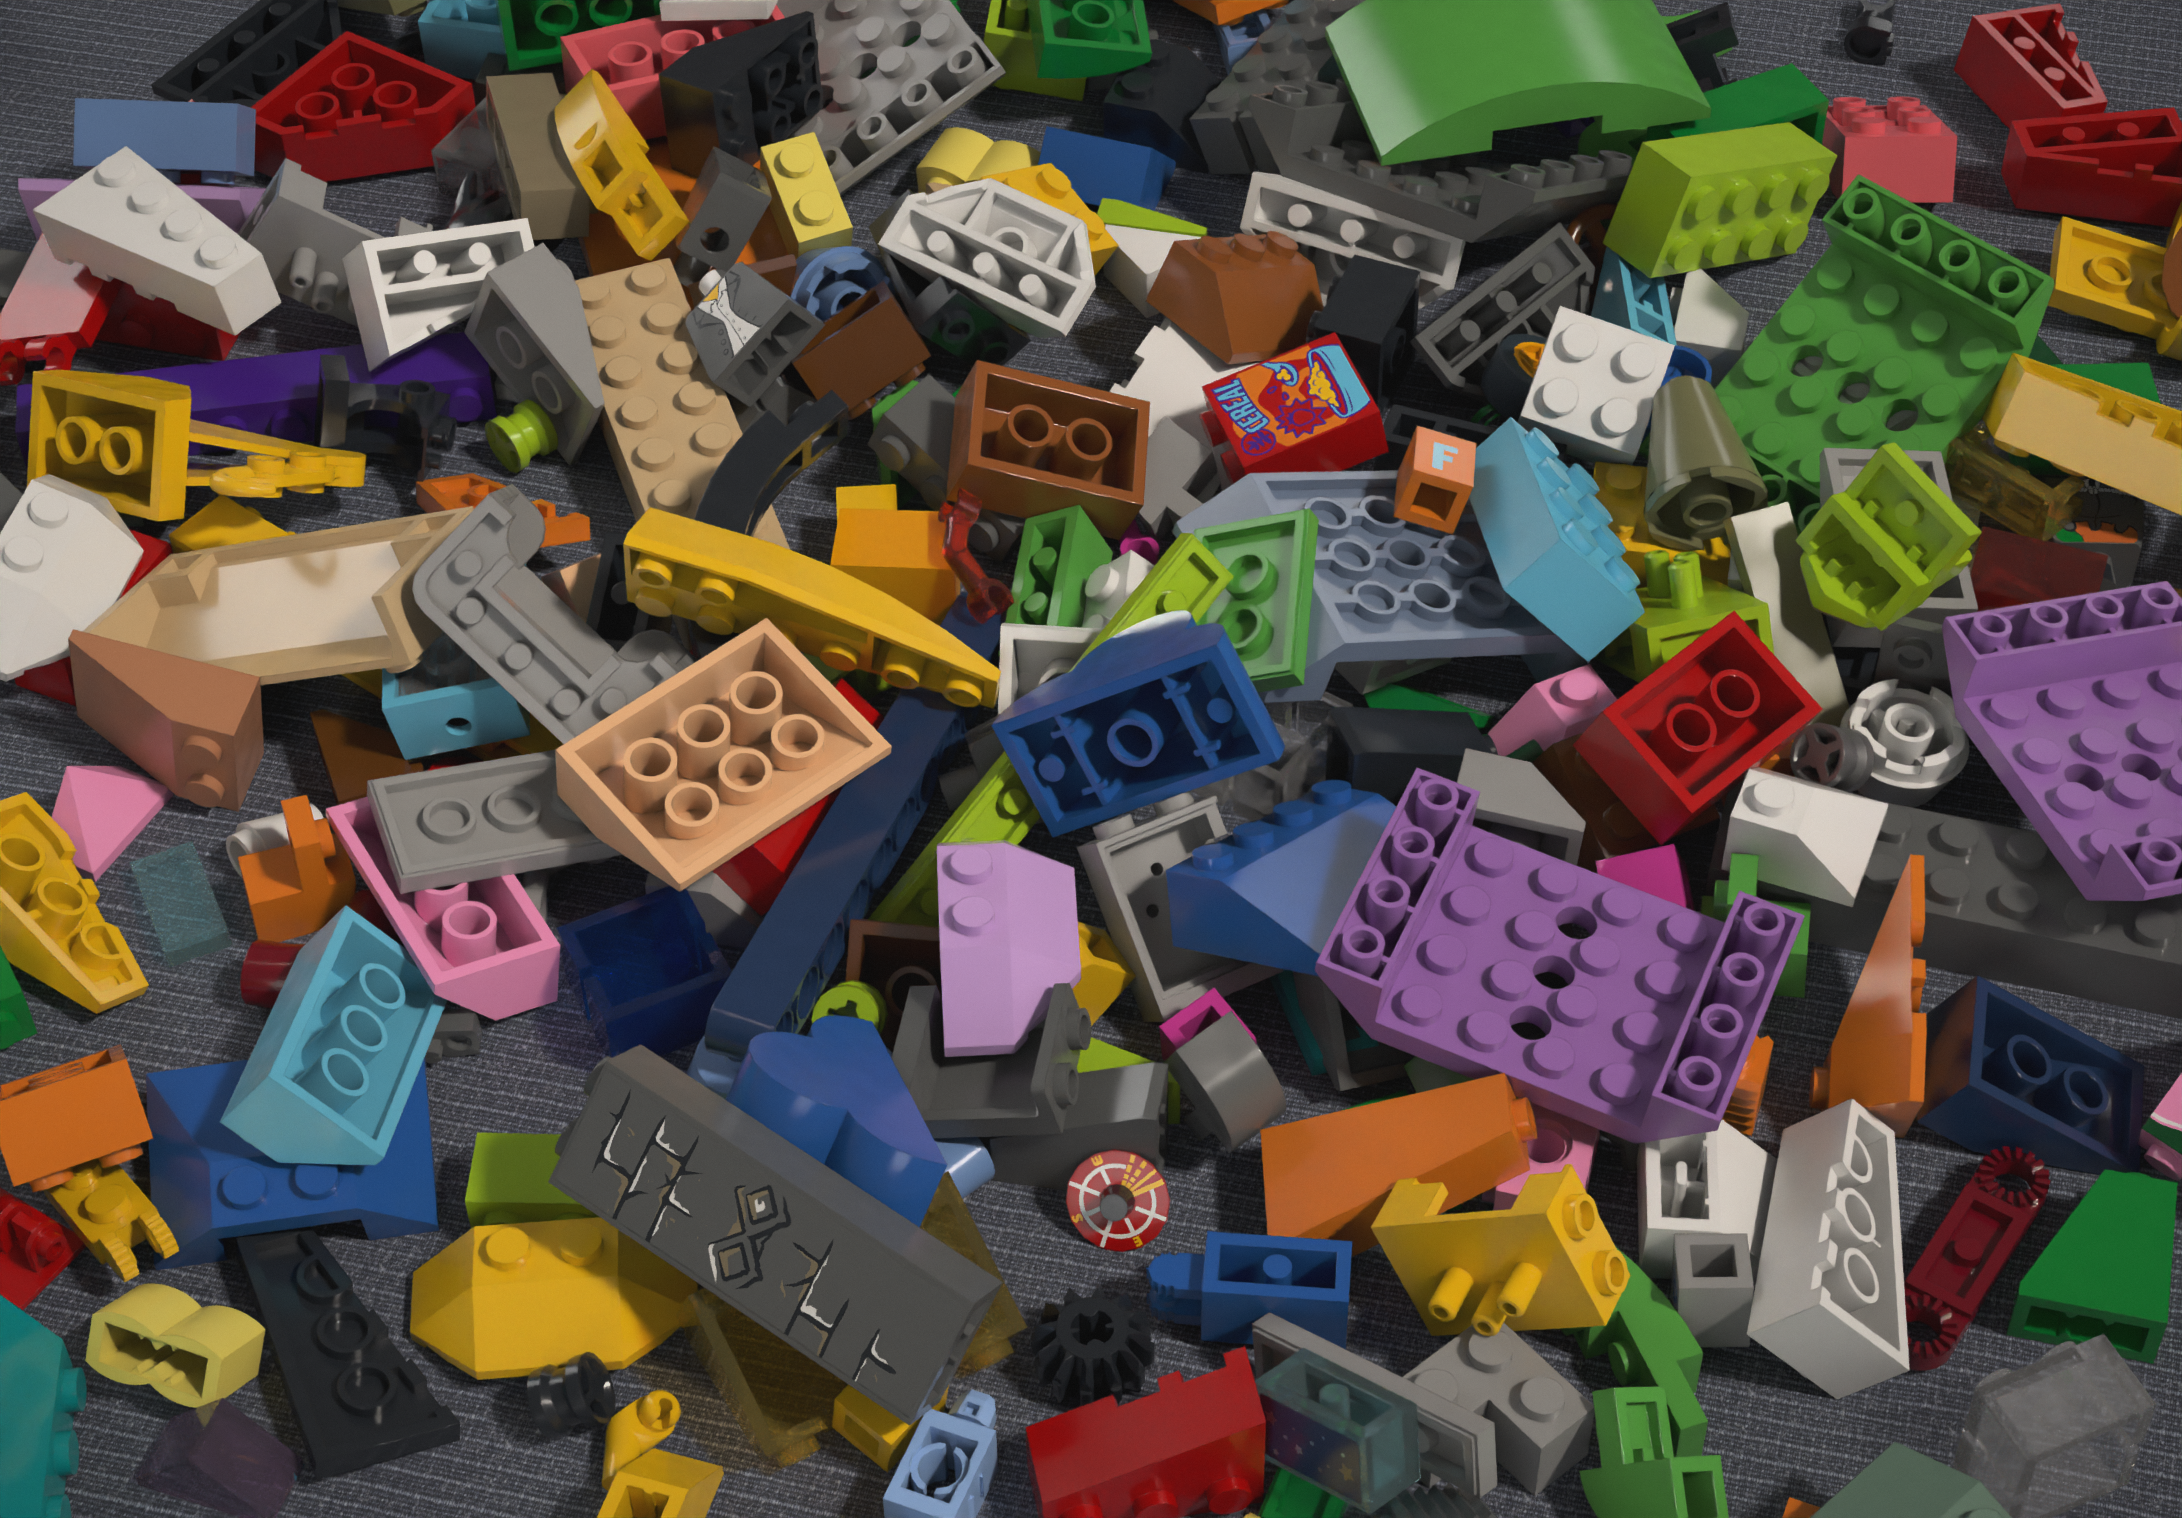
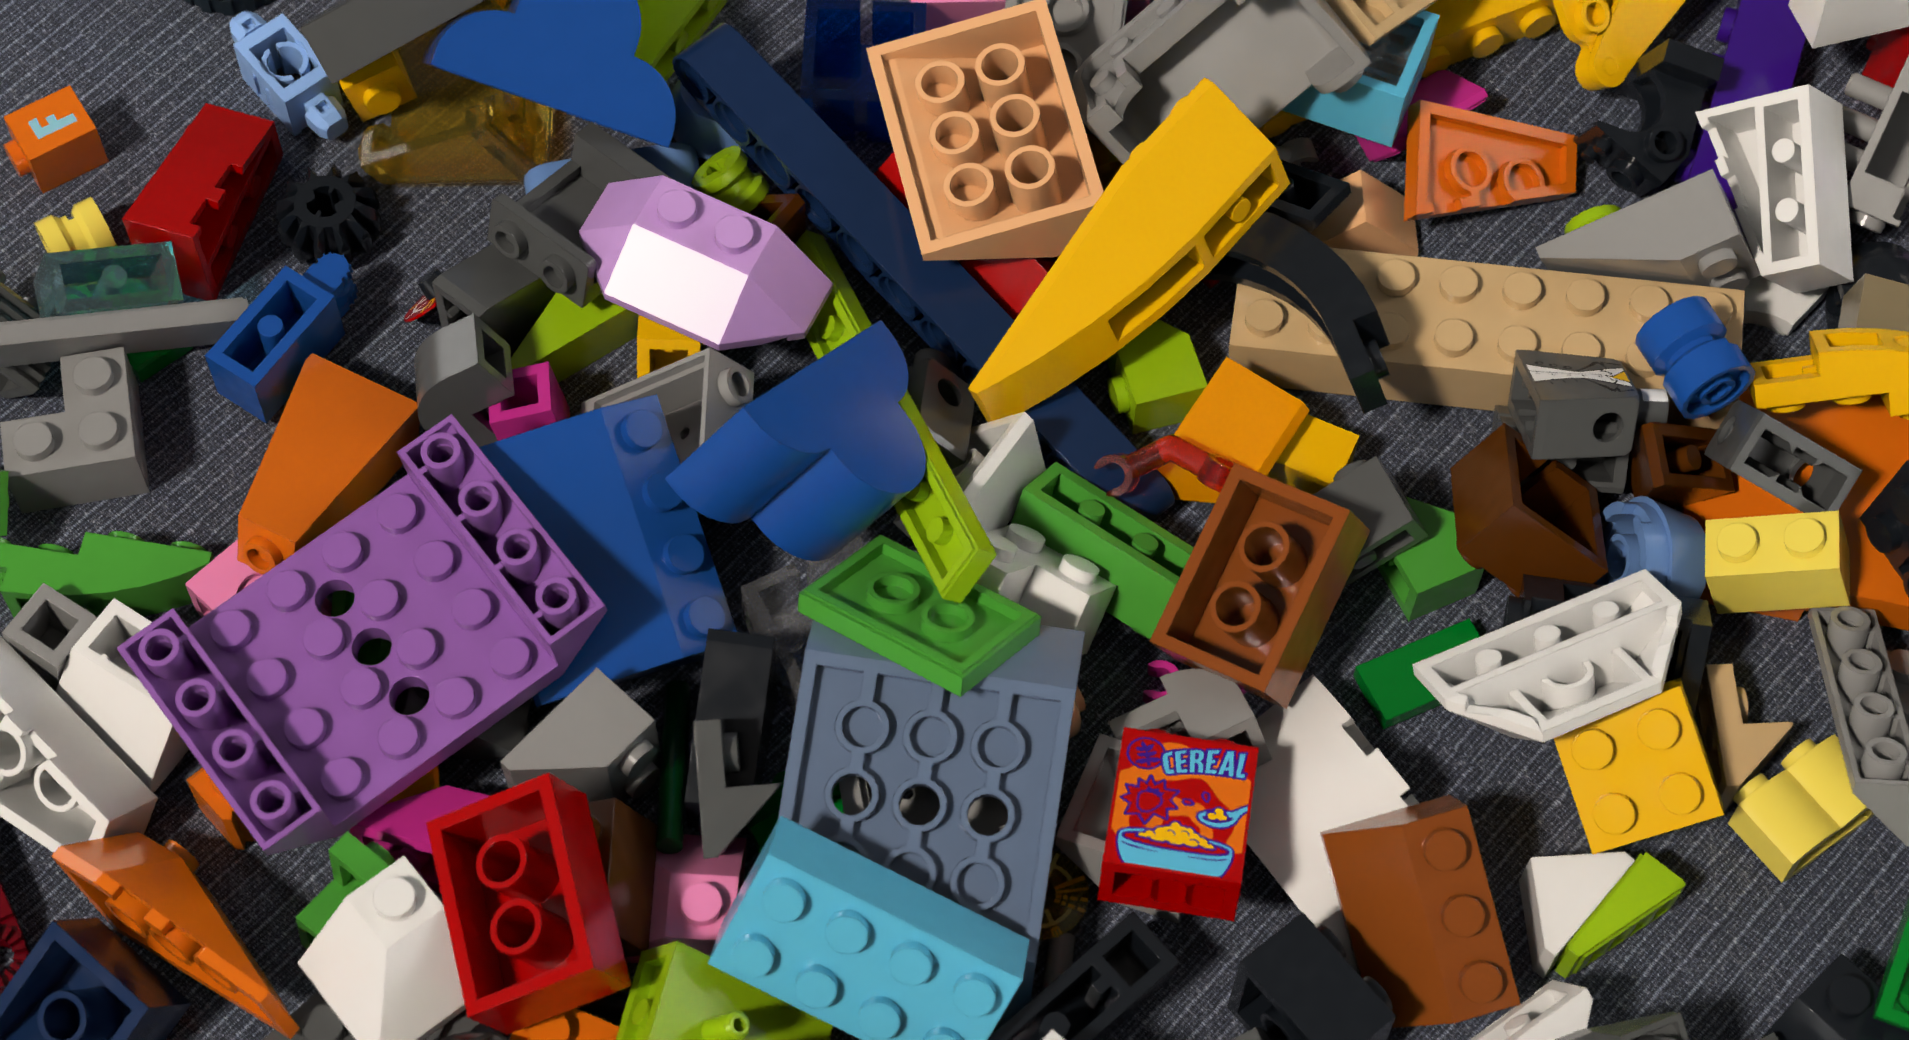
camera: 115 degrees right, 15 degrees up
(670, 254) = (1693, 355): none -> blue wheel
(1108, 168) = (1754, 930): blue slope -> none
(1435, 480) = (992, 873): orange brick -> none
(1479, 702) = (723, 808): none -> dark grey slope
(1518, 1266) = (156, 466): yellow piece -> none

